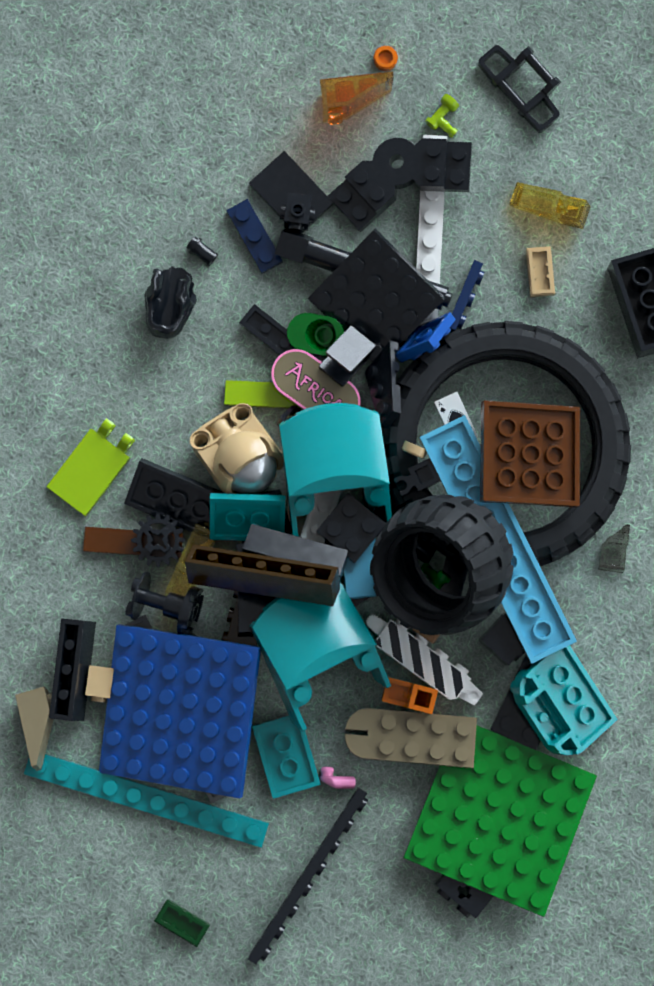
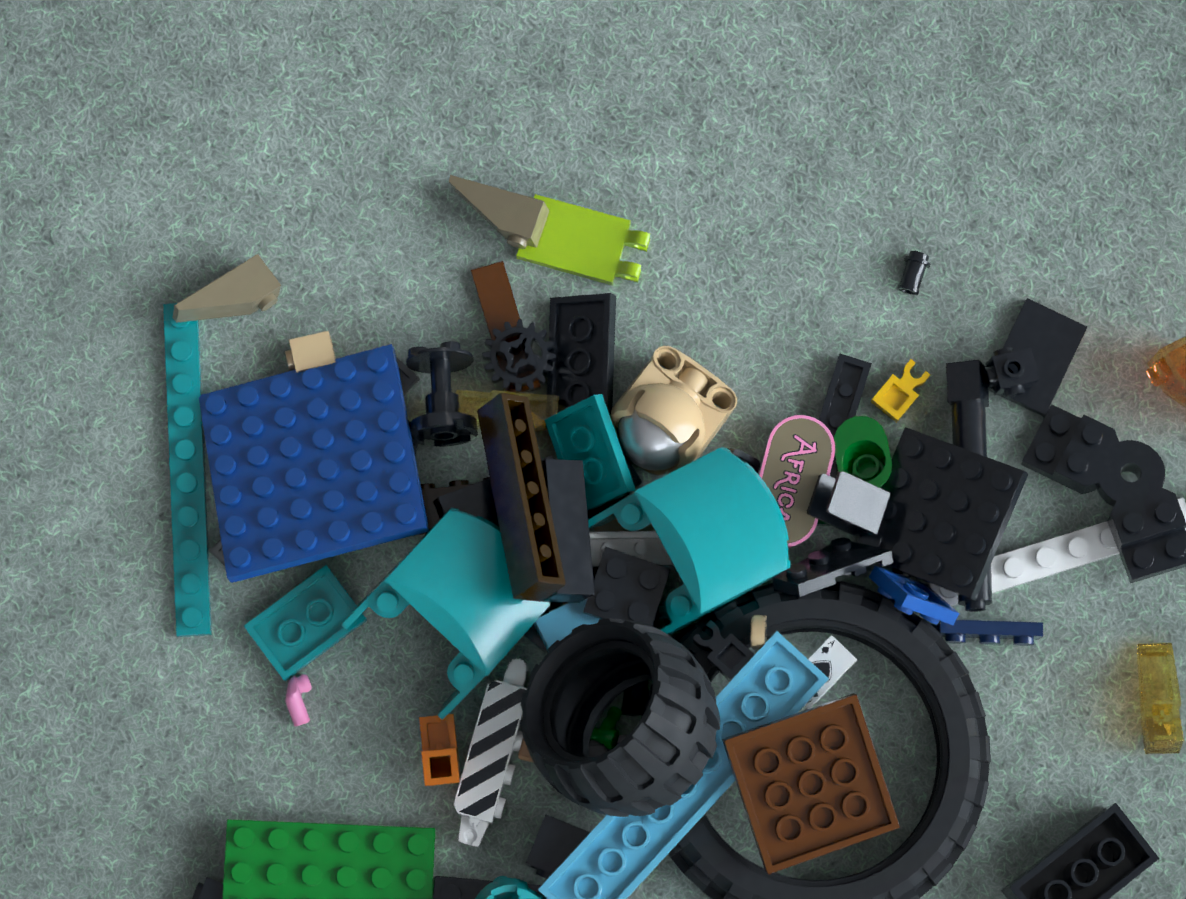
camera: 70 degrees right, 5 degrees down
(56, 507) = (511, 214): none -> dark tan slope
(72, 669) = (315, 310): black brick -> none
(169, 302) = (830, 254): black hair -> none
(182, 922) = (46, 571): dark green plate -> none
(254, 236) = (960, 331): dark blue plate -> none
(255, 394) = (754, 408): lime tile -> none
(282, 294) = (898, 394): none -> yellow plate
(303, 885) = (176, 712): black plate -> none
(413, 737) = (386, 775): dark tan plate -> none
(540, 271) = (1064, 718): tan plate -> none

